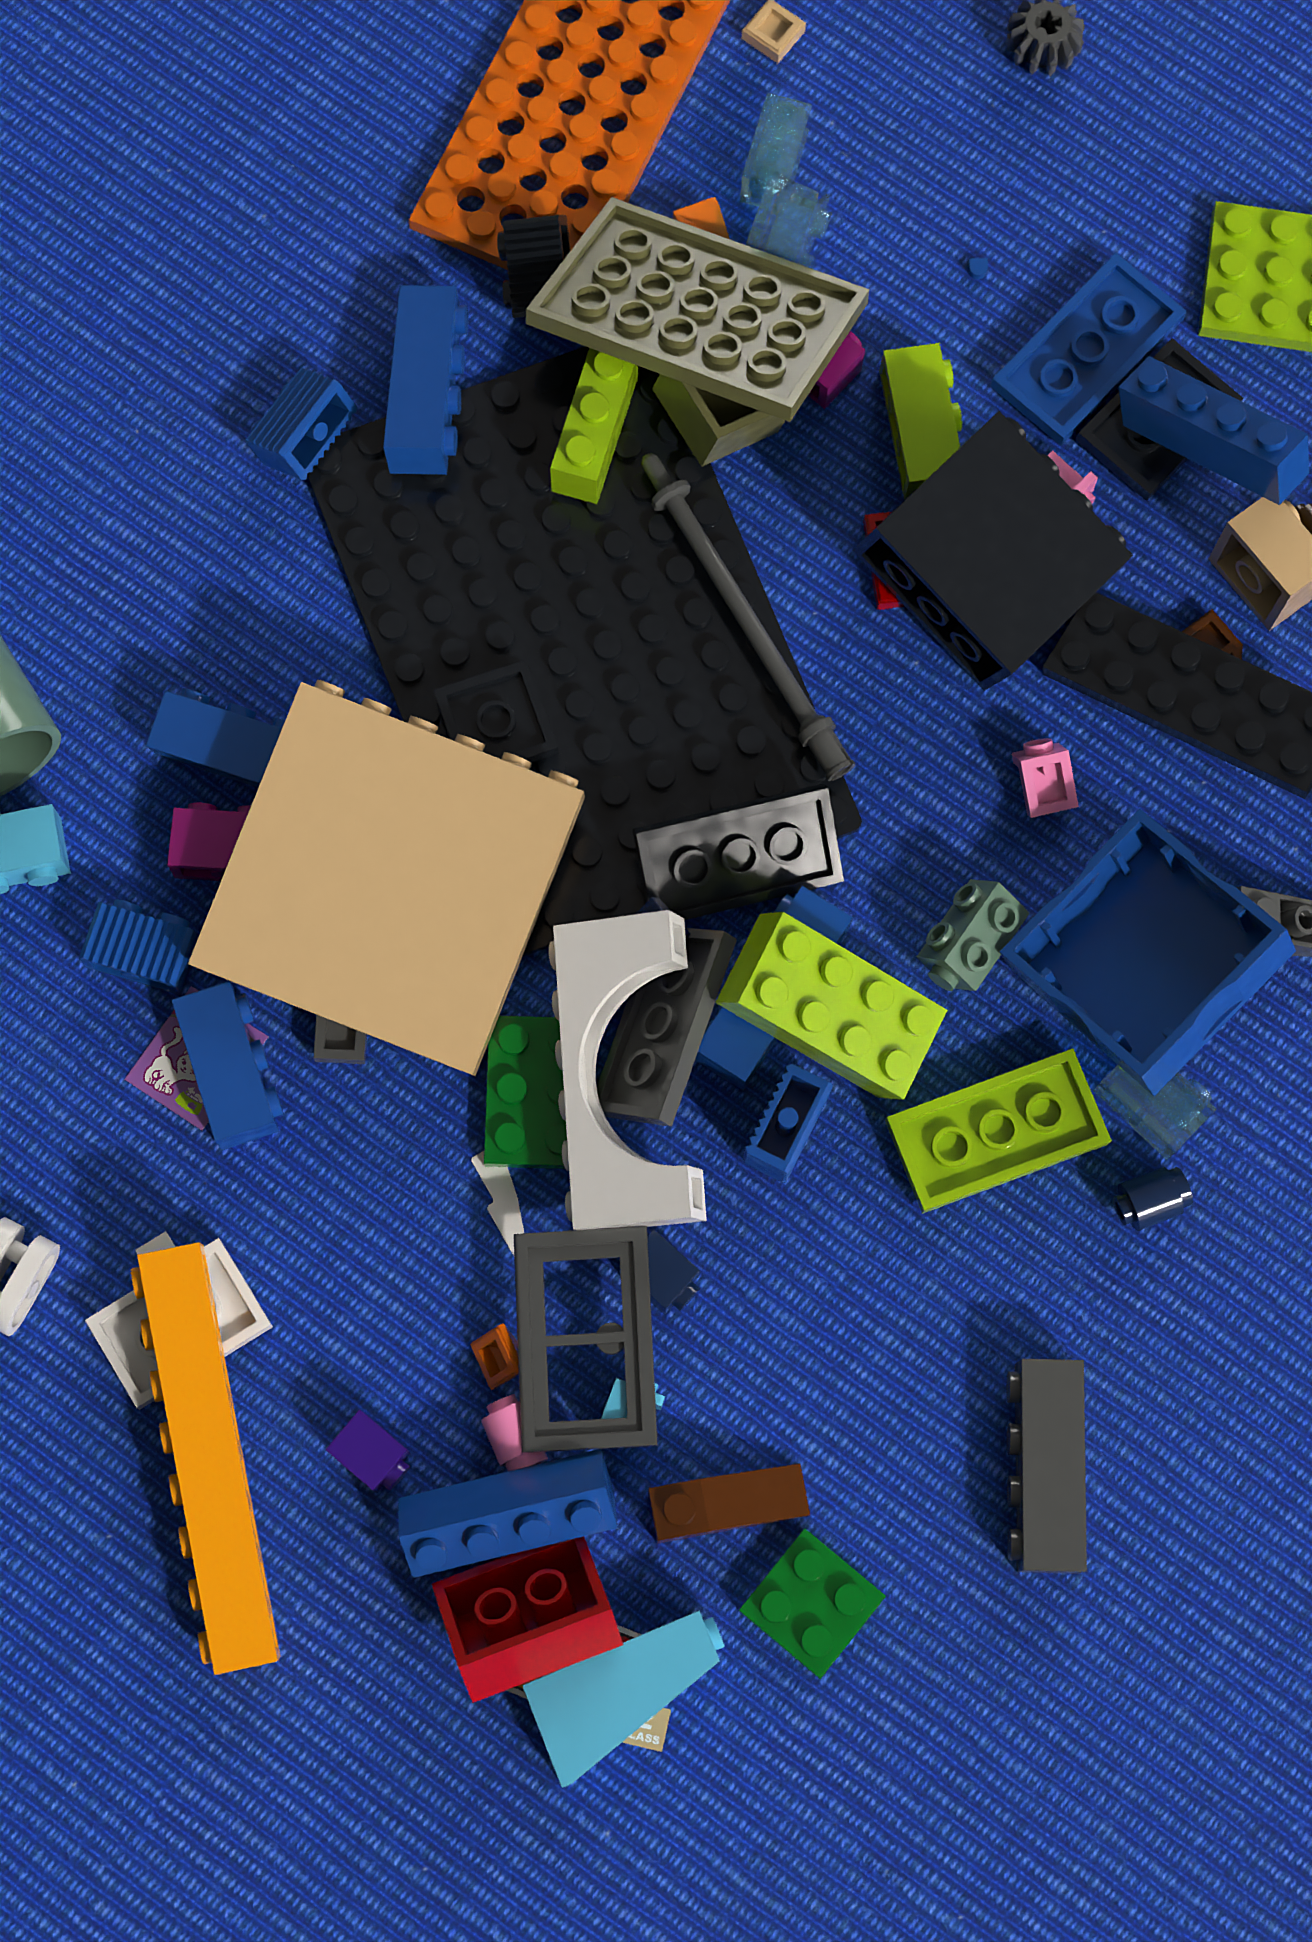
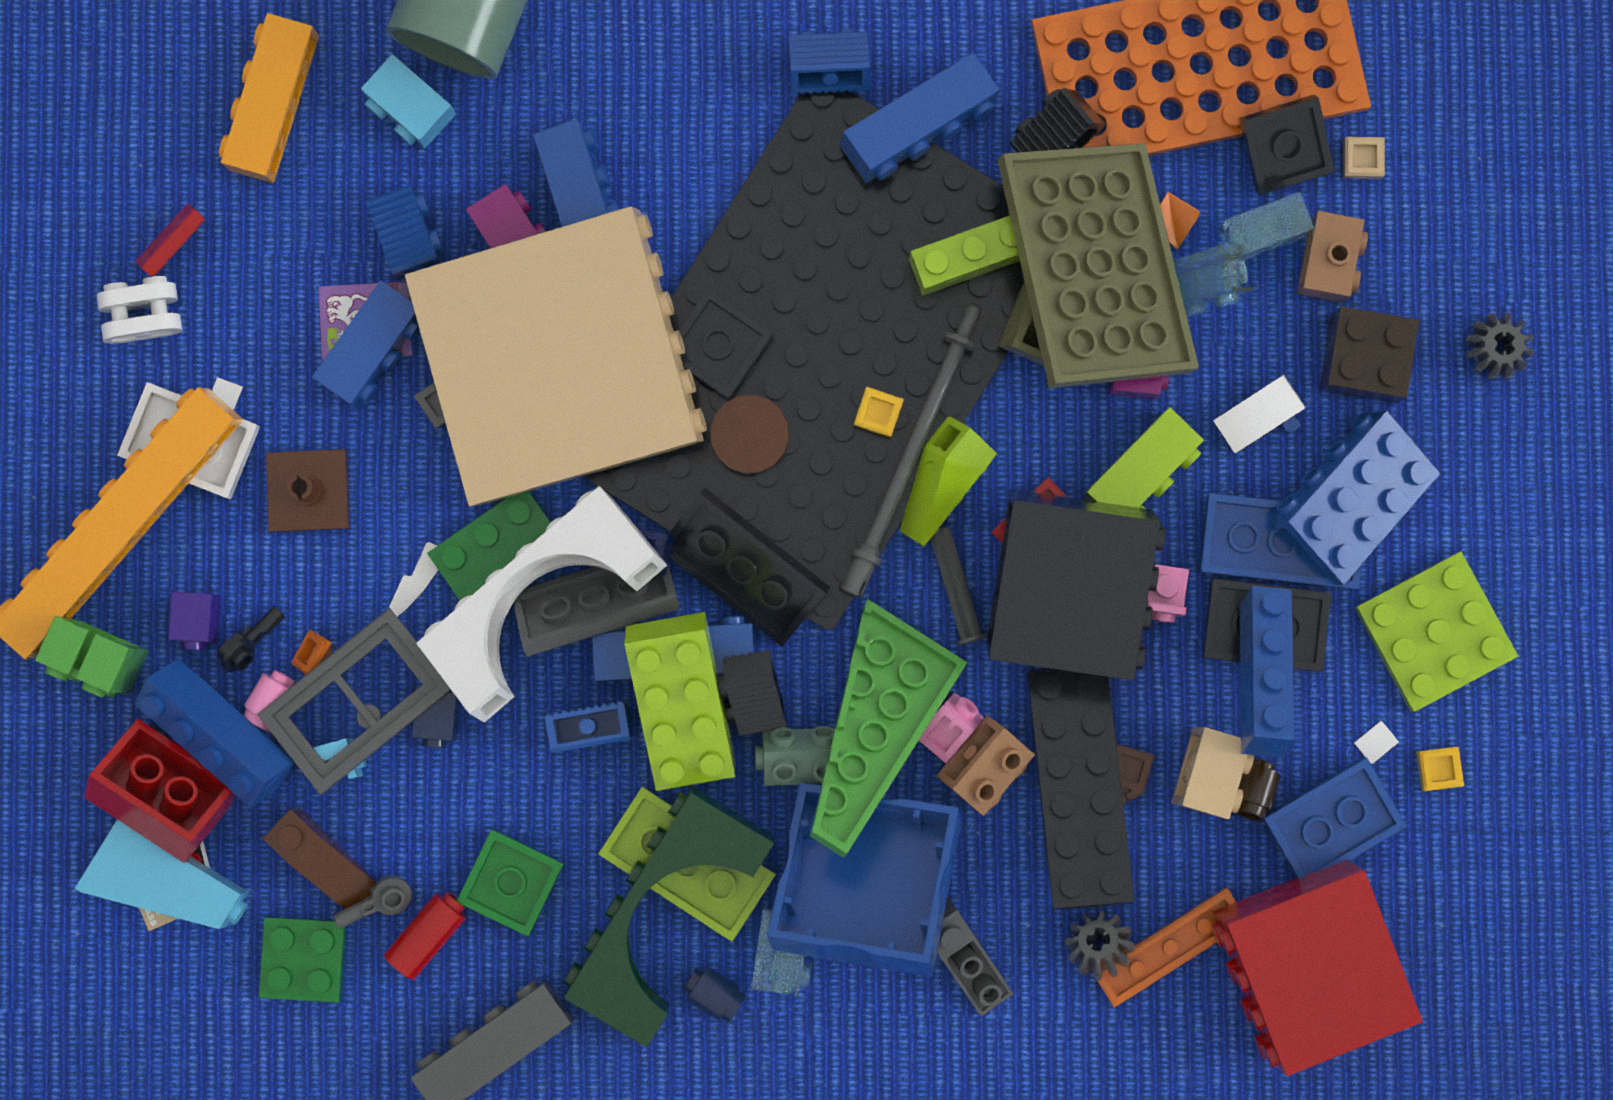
camera: 55 degrees right, 10 degrees up
(320, 1592) = (92, 656): none -> bright green piece
(326, 1240) = (308, 491): none -> reddish brown tile
(436, 1431) = (238, 650): none -> black plate
(610, 757) = (749, 434): none -> reddish brown tile
(680, 622) = (878, 412): none -> yellow tile
(710, 80) = (1286, 144): none -> black plate
(791, 603) = (944, 475): none -> lime slope
(810, 1461) = (388, 896): none -> dark grey plate
(849, 118) = (1332, 257): none -> medium nougat brick
(875, 929) = (752, 692): none -> black brick
(880, 1449) = (426, 935): none -> red brick
(888, 1323) = (510, 882): none -> green plate
(907, 674) = (956, 587): none -> dark grey axle
(949, 283) = (1259, 414): none -> white slope
(967, 148) = (1369, 355): none -> dark brown brick
(987, 819) = (885, 707): none -> bright green wing
(1056, 1288) = (696, 835): none -> dark green arch
(1093, 248) = (1356, 495): none -> bracket
(1110, 767) = (985, 765): none -> medium nougat brick

